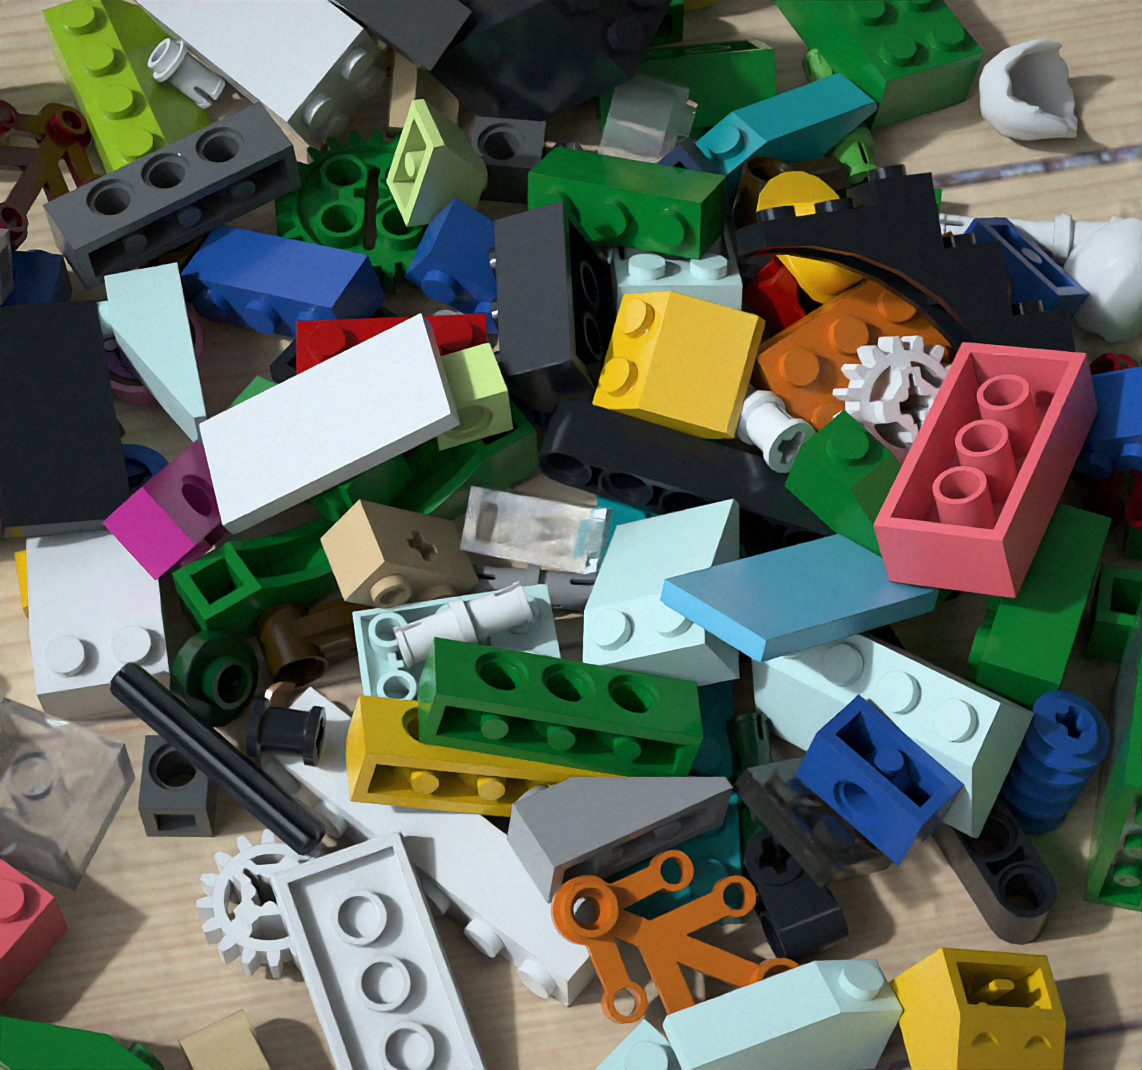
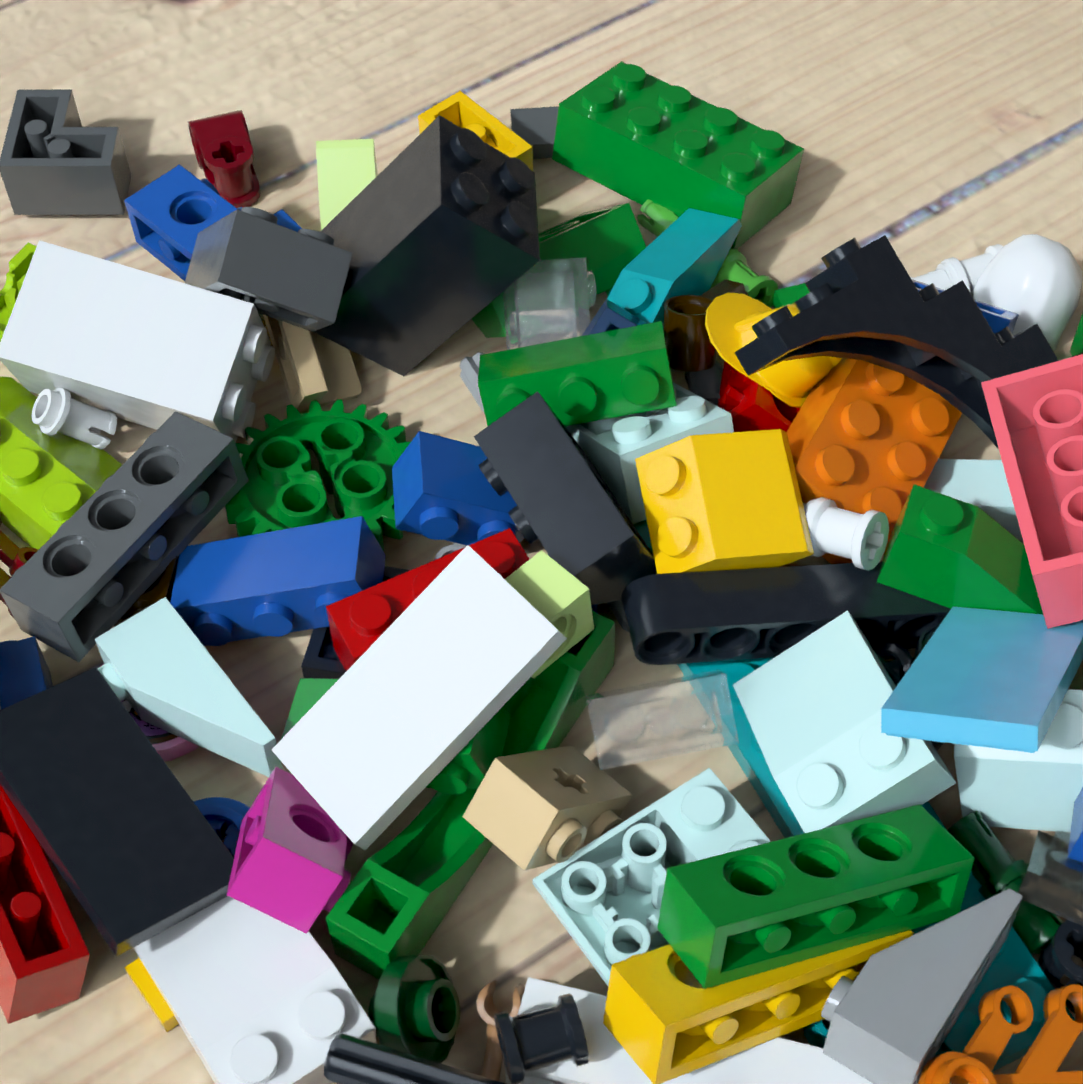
camera: 25 degrees left, 5 degrees down
(304, 641) = (485, 931): dark brown piece -> none
(433, 166) = (375, 414): yellowish green slope -> none
(465, 622) = (666, 843): white pin -> none
(509, 152) = (425, 389): dark grey brick -> none
(565, 588) = (676, 770): light grey pin -> none
(892, 376) = (942, 452): white gear -> none
(1028, 92) = (847, 178): white hair -> none

